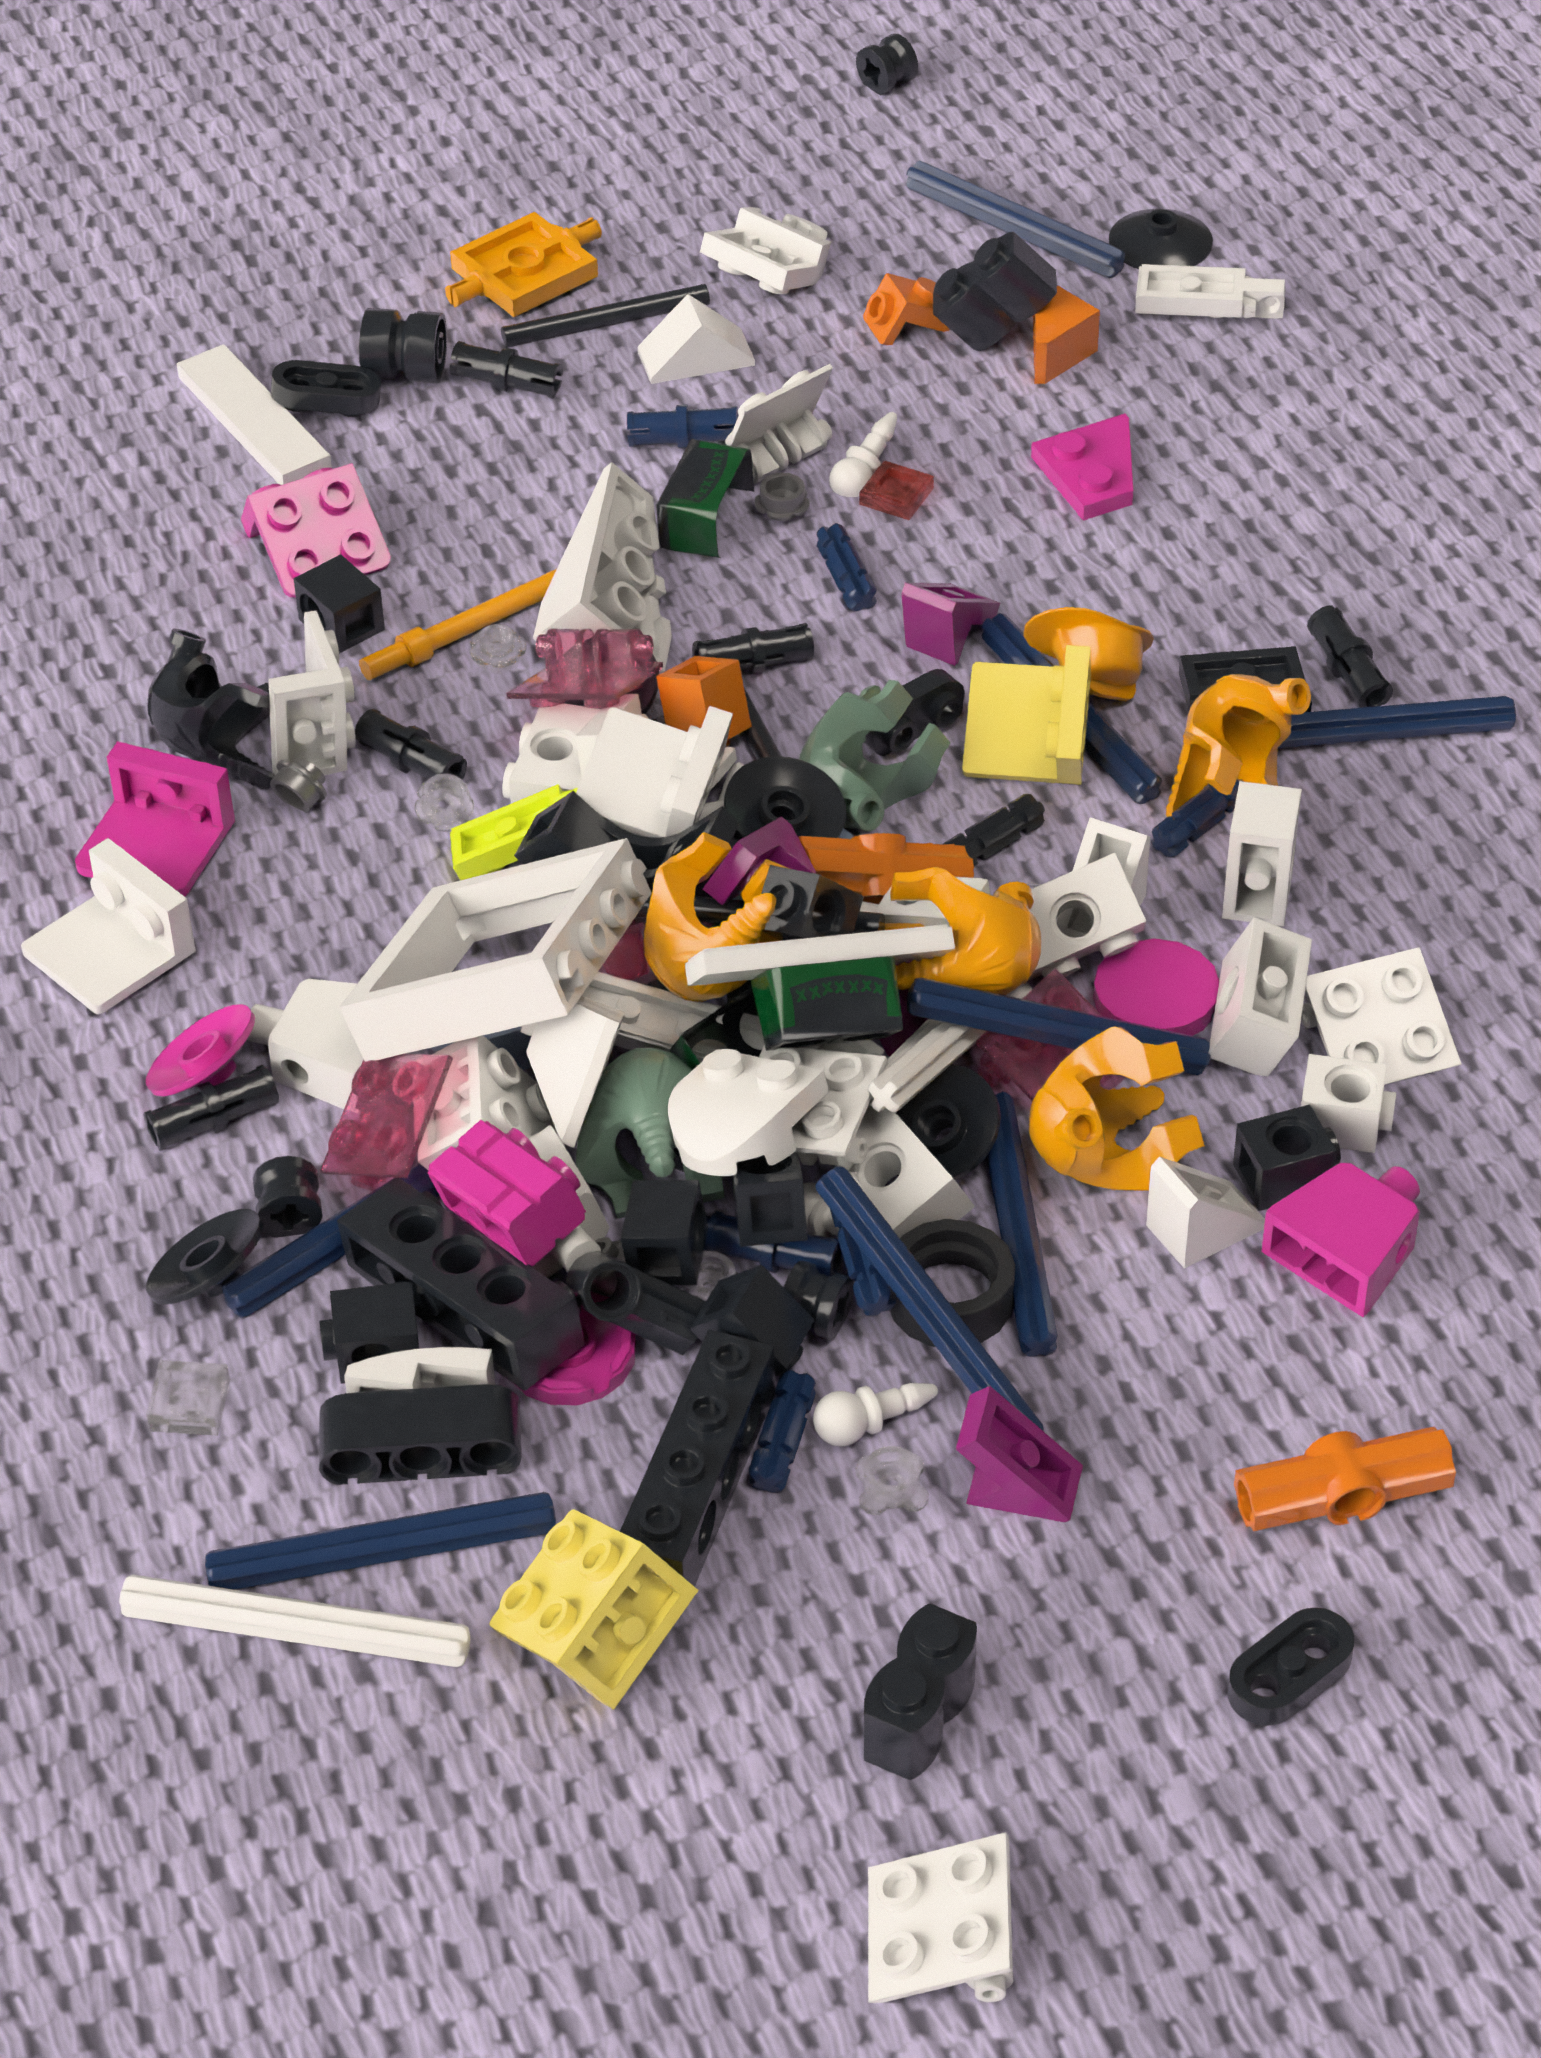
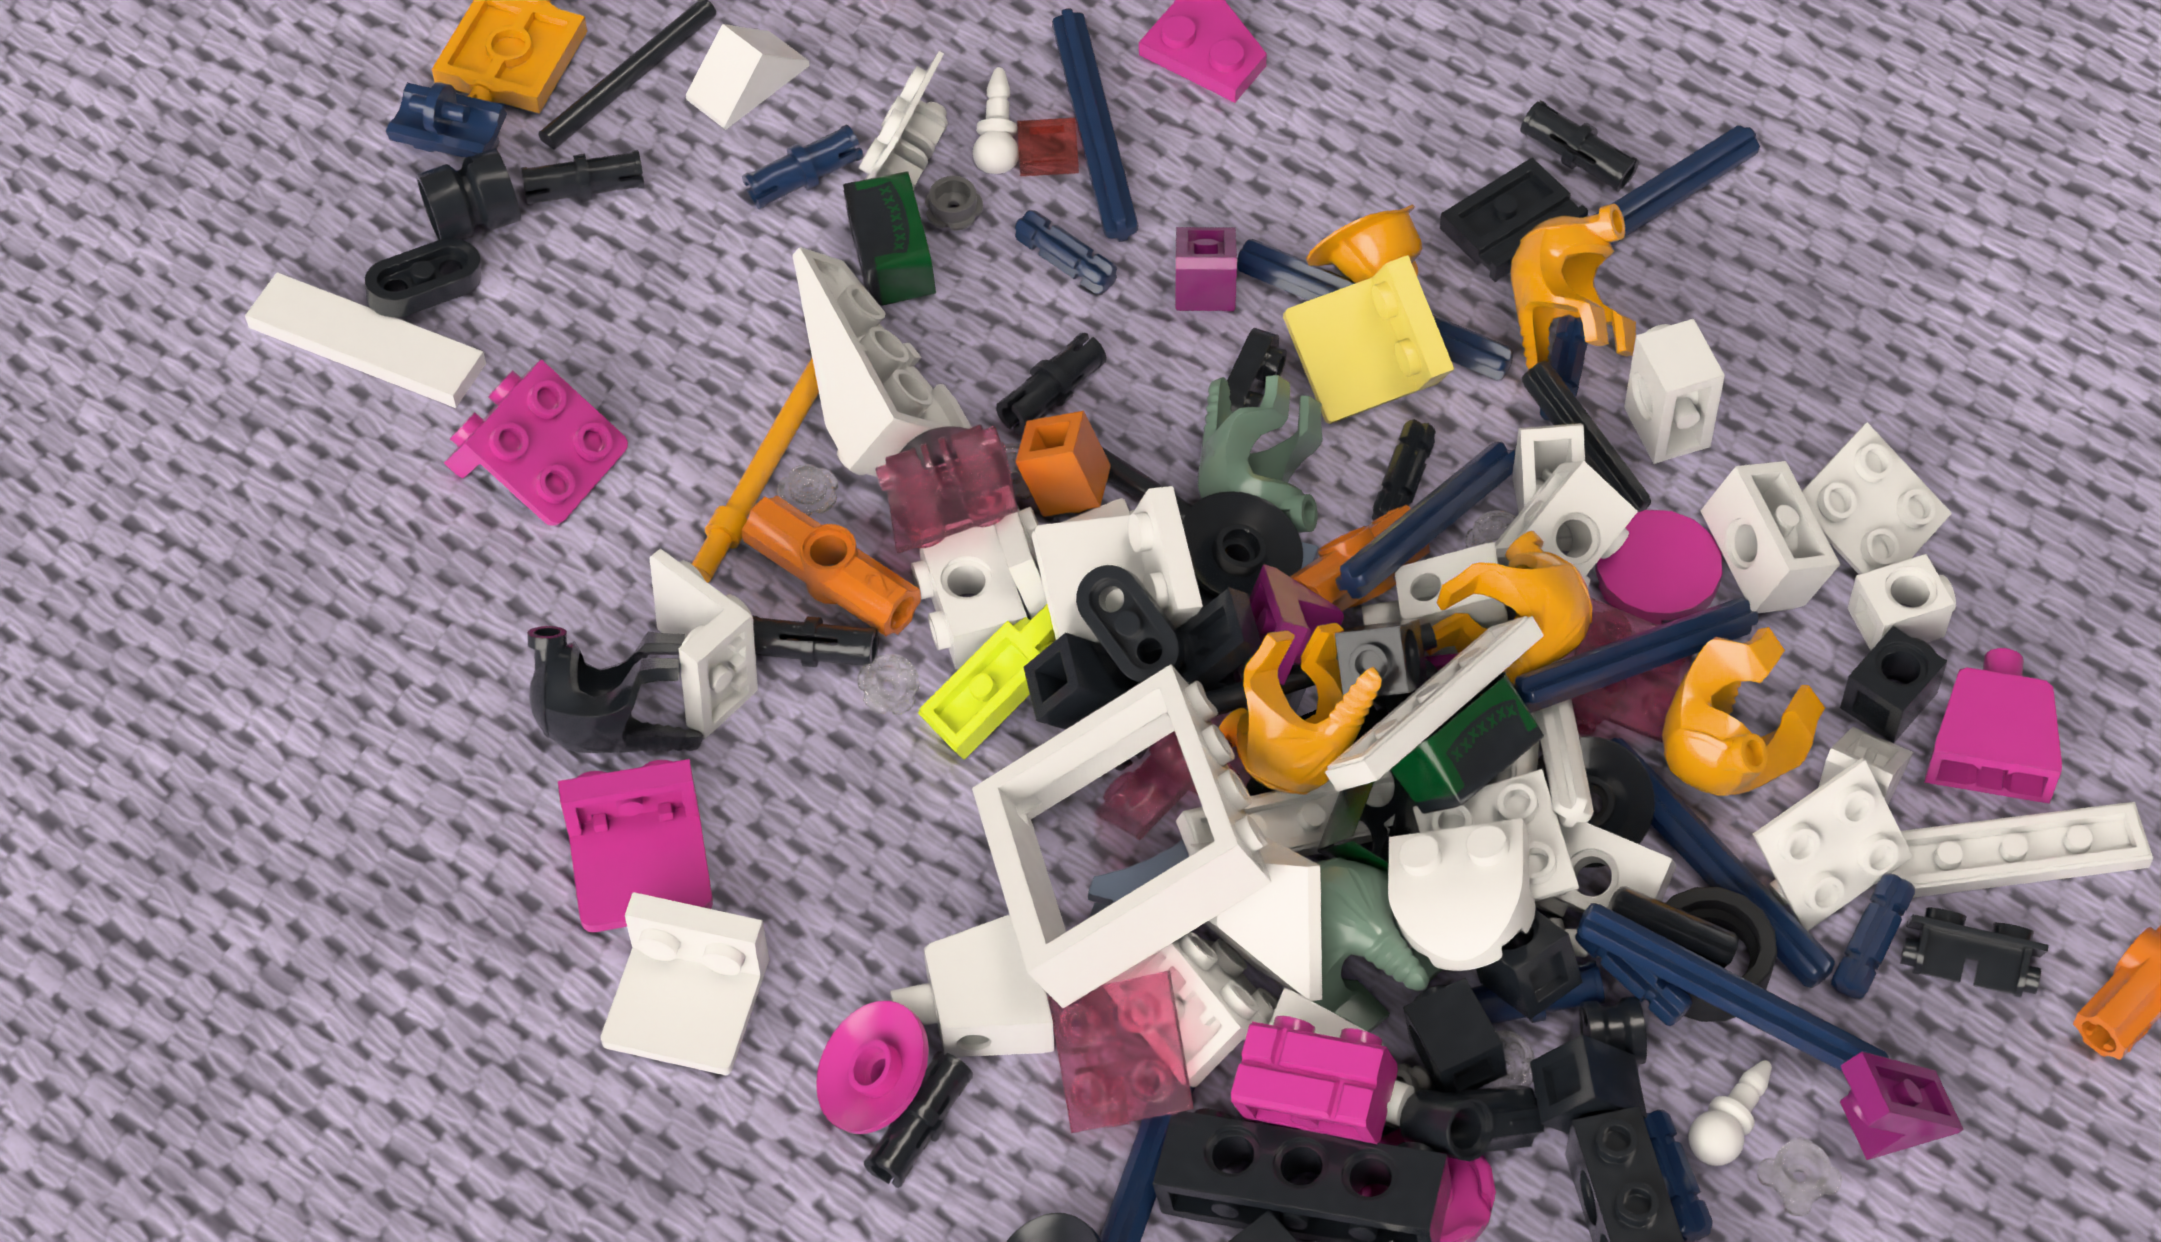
camera: 30 degrees left, 10 degrees up
(287, 1196) = (1069, 1176): black wheel -> none
(299, 784) = (737, 731): flat silver plate -> none
(343, 600) = (624, 515): black brick -> none
(430, 287) = (446, 121): none -> dark blue hips
(467, 702) = (852, 581): none -> orange piece
(631, 813) = (1132, 626): none -> black plate
(918, 1233) = (1676, 925): none -> black axle
(946, 489) = (1095, 125): none -> dark blue axle
(954, 854) = (1425, 520): none -> dark blue axle
(1106, 1335) = (1873, 936): none -> dark blue axle
(1111, 1237) = (1832, 845): none -> white hinge
(1165, 865) = (1564, 408): none -> black axle
(1209, 1402) = (2000, 954): none -> black hinge
(1295, 1334) = (2025, 849): none -> white tile

